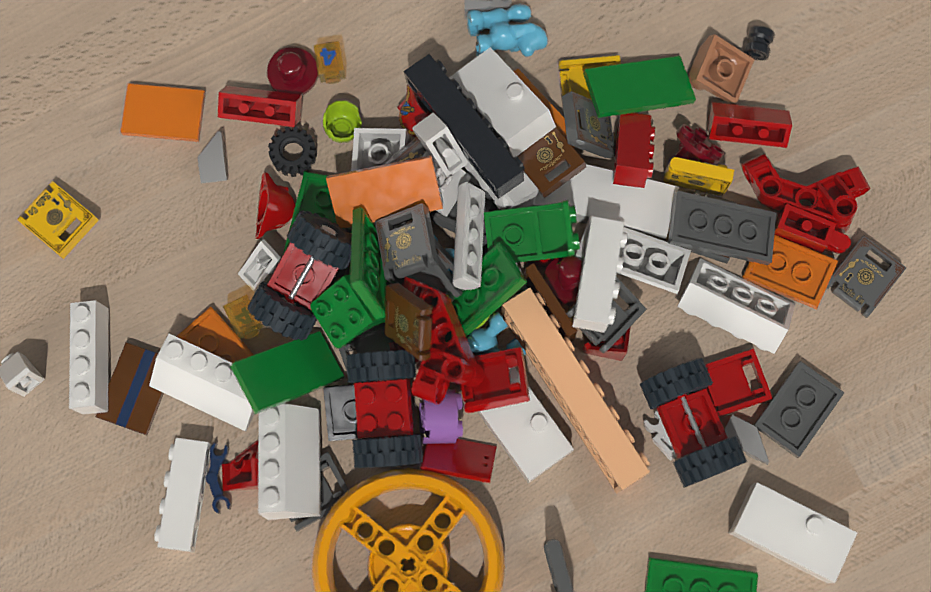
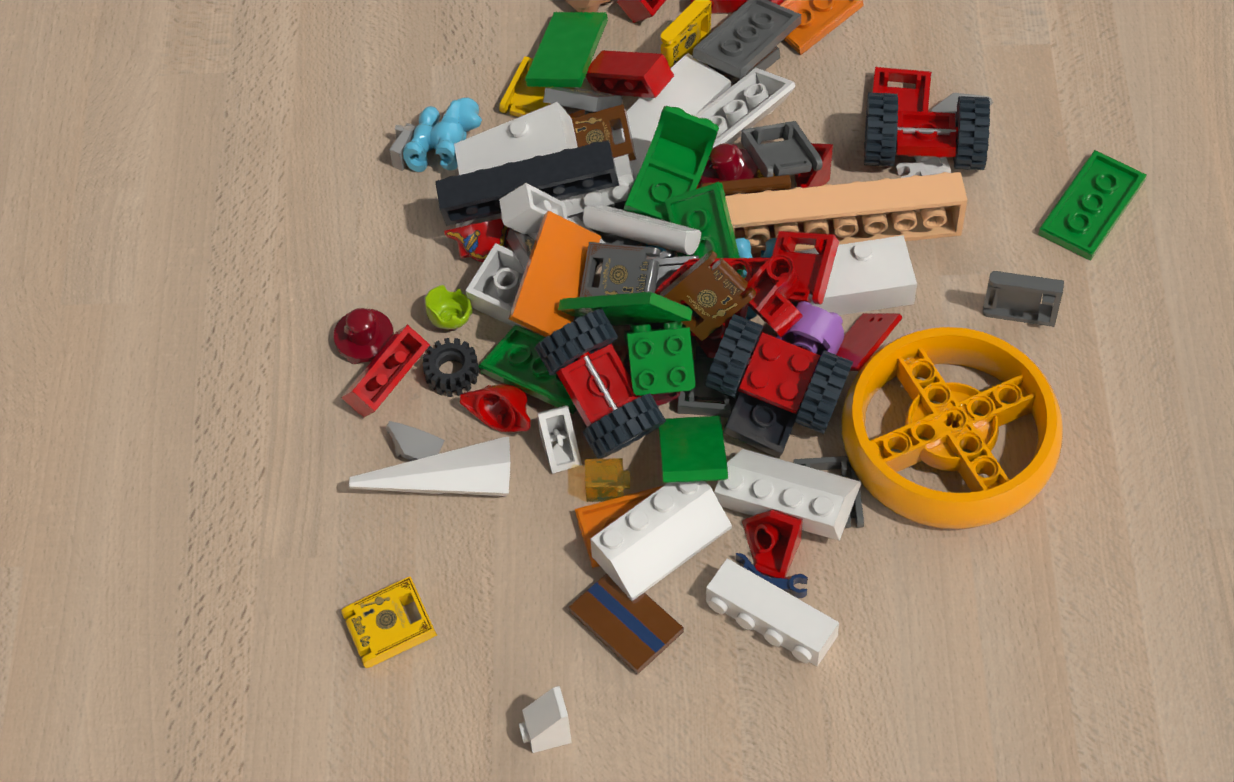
camera: 60 degrees left, 20 degrees down
(88, 357) = (568, 642): white brick -> none
(163, 112) = (323, 476): orange tile -> none
(201, 207) = (467, 470): none -> white wedge
(329, 62) = (376, 293): clear yellow brick -> none
(599, 274) = (750, 129): white brick -> none
(696, 147) = (652, 30): dark red plate -> none
(737, 306) = (832, 61): white slope -> none
(793, 533) = (1069, 106): white brick -> none
(798, 409) = (952, 57): dark grey plate -> none

